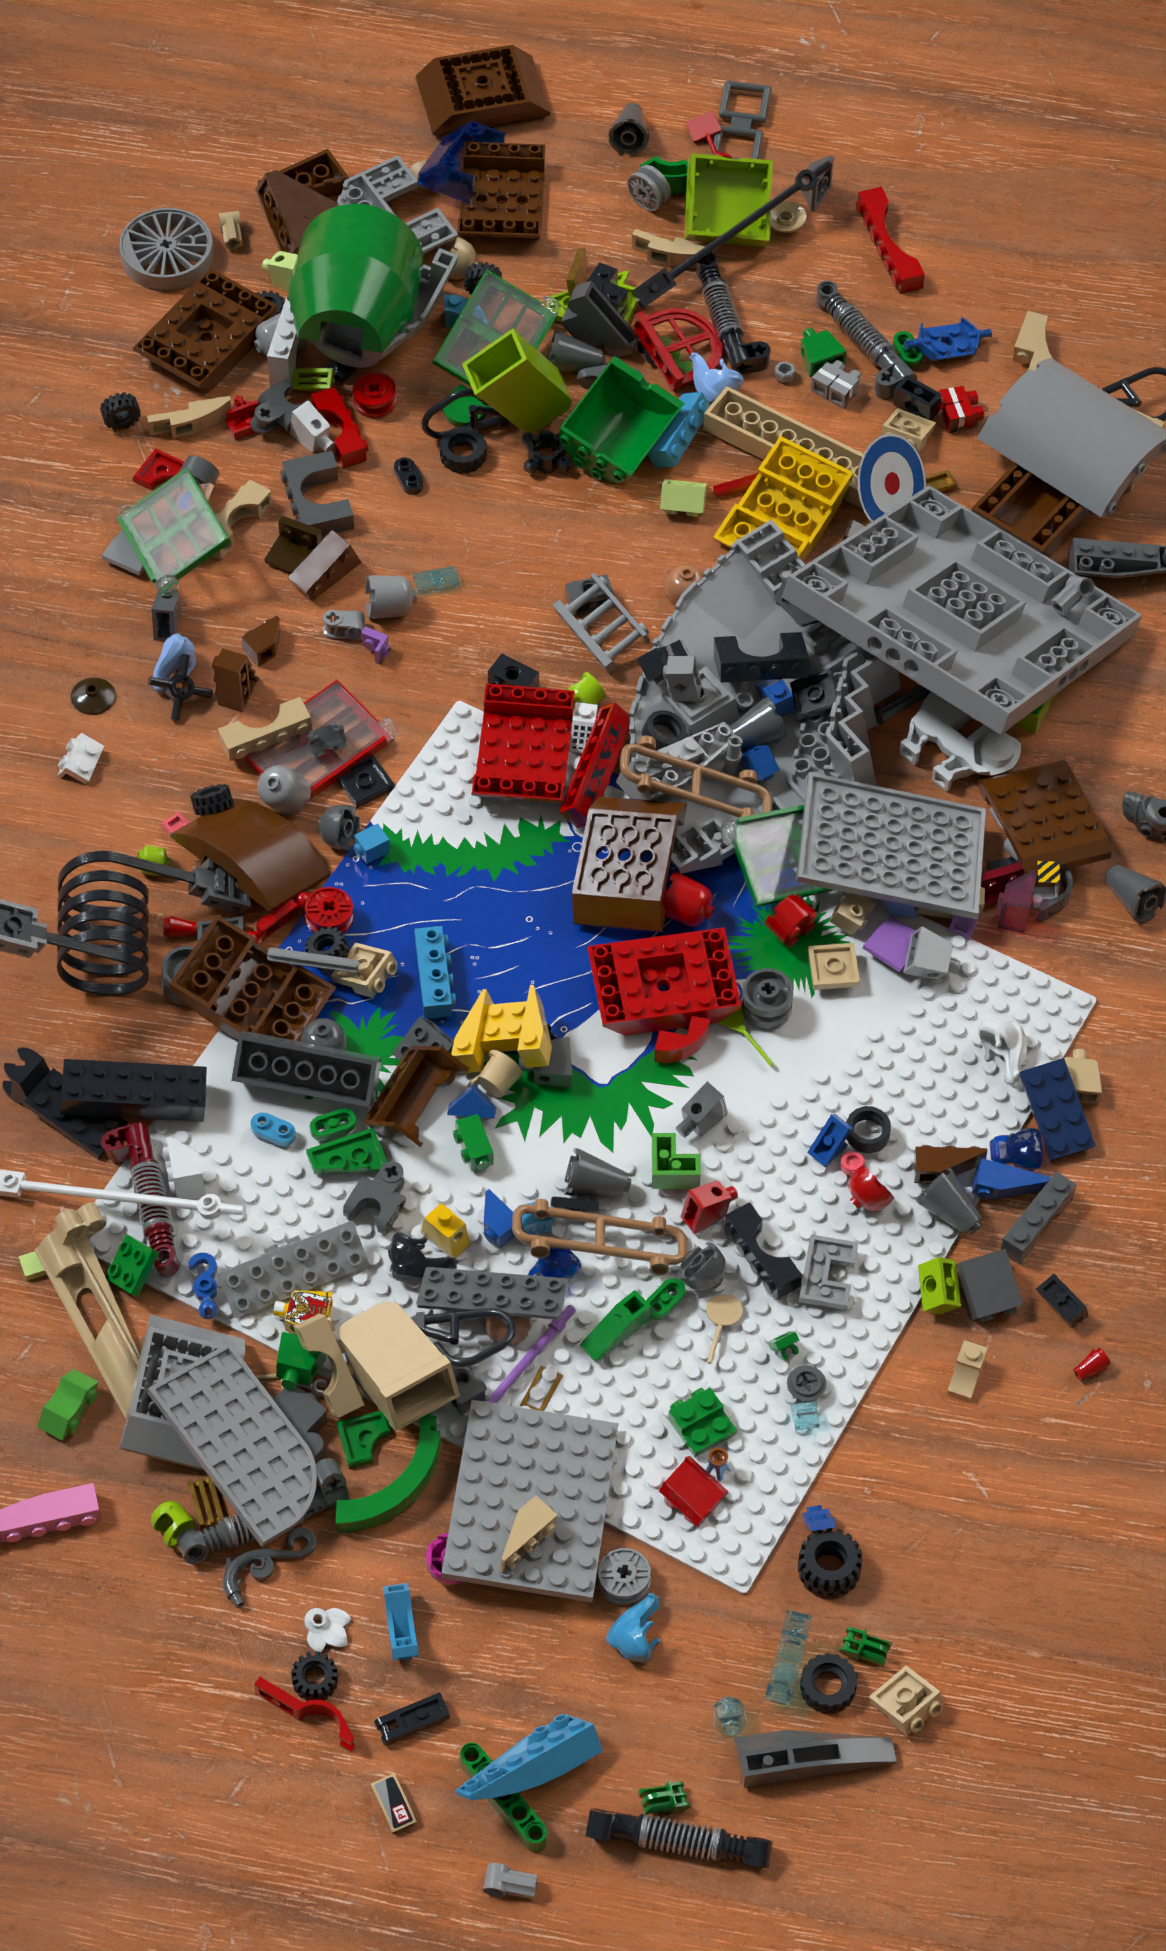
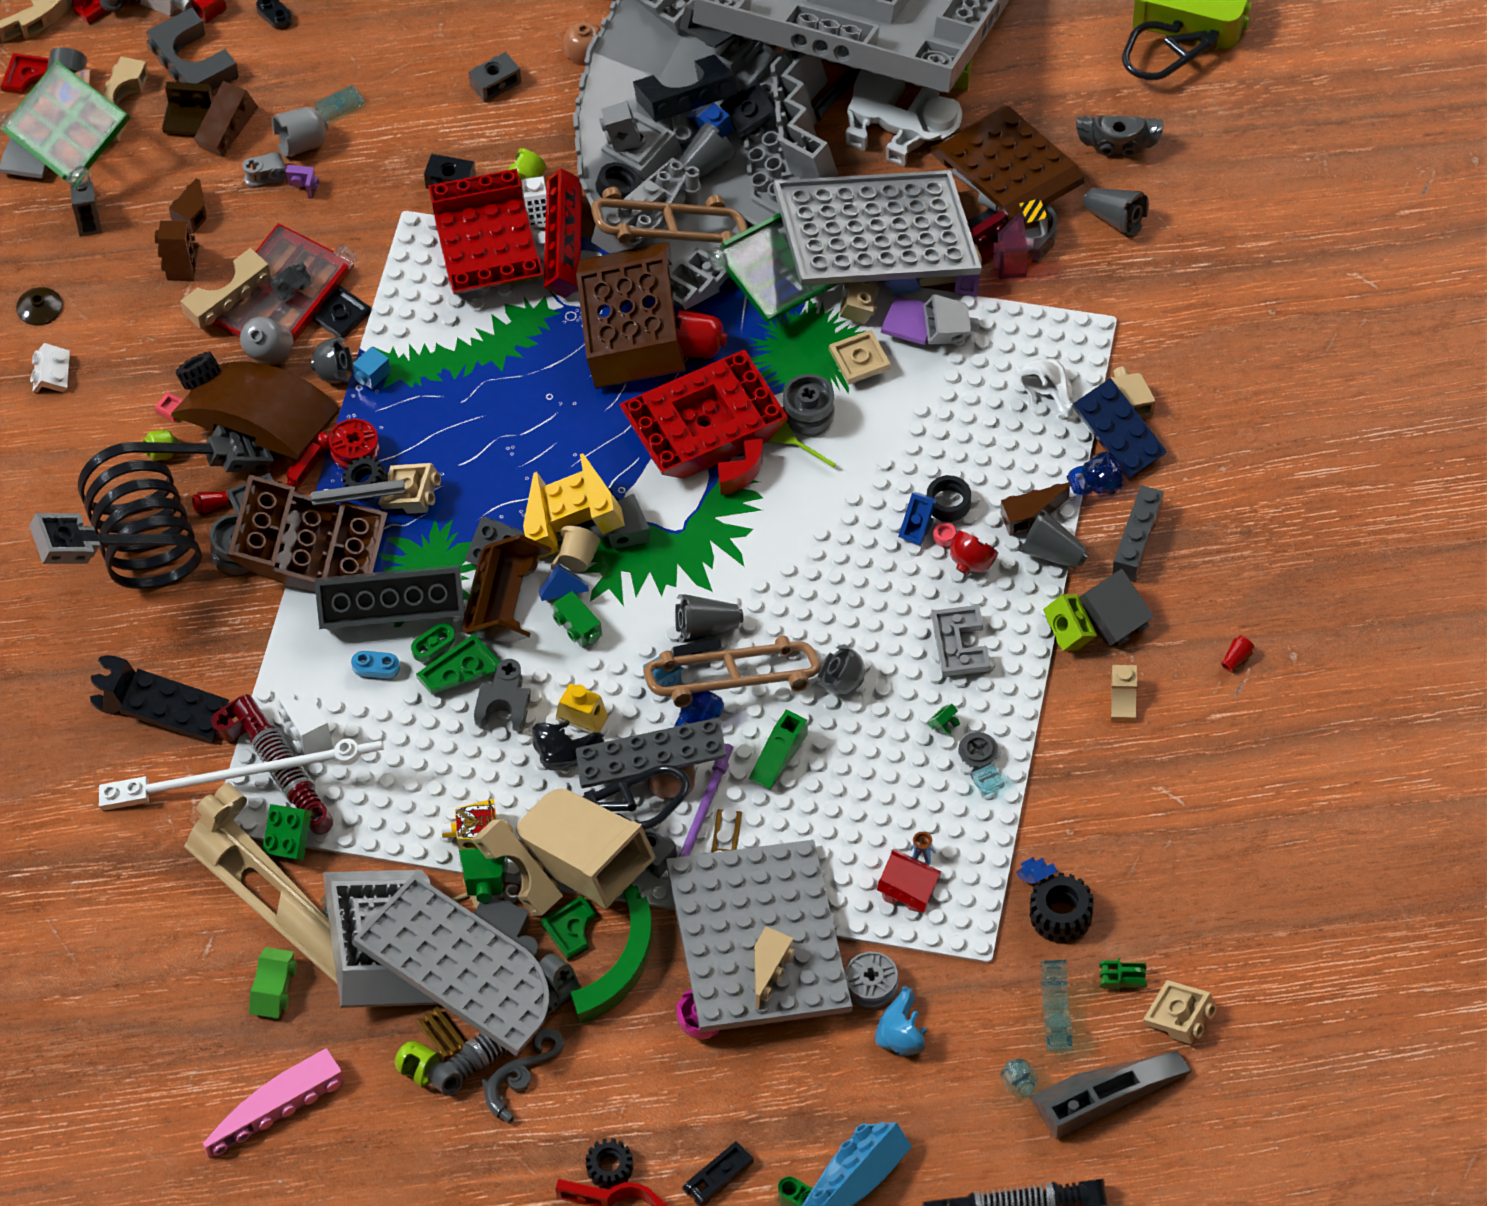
camera: 15 degrees left, 0 degrees up
(31, 1266) = (185, 863): yellowish green tile -> none
(133, 1090) = (226, 666): black brick -> none
(170, 658) = (108, 243): light blue piece -> none
(175, 693) = (129, 278): black bar -> none
(205, 1286) = (365, 830): blue piece -> none
(293, 1267) = (444, 787): light grey bracket -> none
(325, 1033) = (393, 558): dark grey cylinder -> none
(330, 1629) = (606, 1116): white plate -> none
(400, 1622) = (673, 1087): dark azure arch -> none
(433, 972) = (477, 471): dark azure brick -> none
(497, 1220) = (628, 685): blue slope -> none
(593, 642) = (498, 108): light grey fence -> none
(654, 660) = (587, 118): black brick -> none
(662, 1299) = (815, 713): green plate -> none
(663, 1799) = (986, 1172): green arm -> none
(673, 1169) = (776, 588): bright green brick -> none
(701, 1421) = (891, 814): green plate -> none
(702, 1111) = (787, 526): dark grey torso -> none
(707, 1205) = (823, 612): red torso -> none
(722, 1311) = (874, 706): tan piece -> none
(761, 761) = (719, 183): blue slope -> none
(778, 1273) = (913, 656): black arch -> none
(791, 920) = (805, 324): red brick -> none
(821, 1701) = (1105, 1000): black tyre -> none
(1002, 1181) = (1092, 508): blue slope -> none
(1062, 1300) = (1189, 601): black hinge -> none

